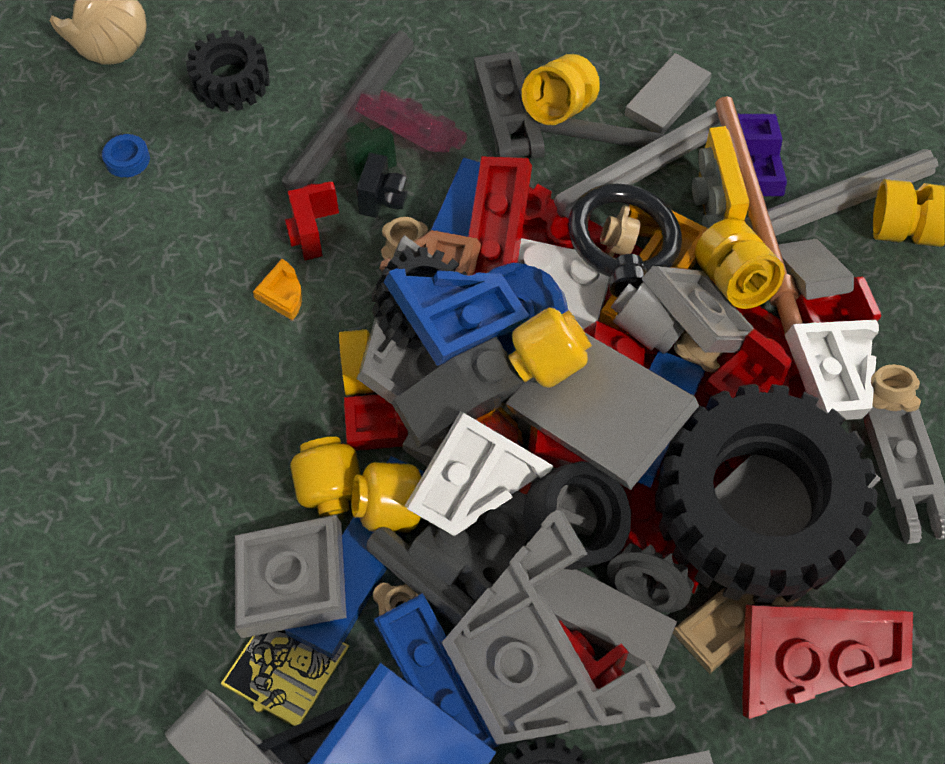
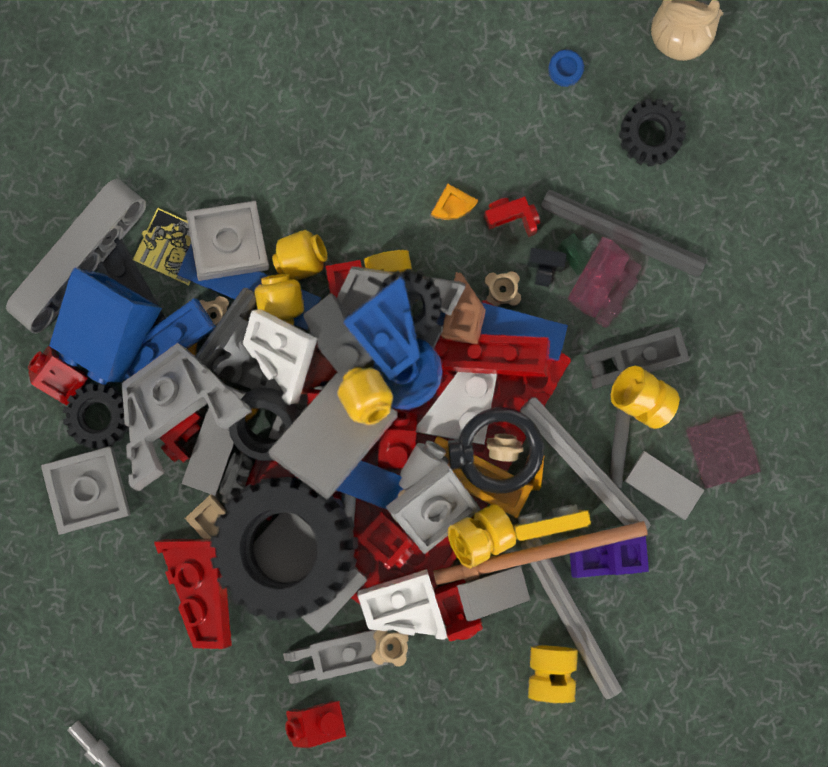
camera: 85 degrees right, 25 degrees up
(626, 38) = (723, 450): none -> clear pink piece

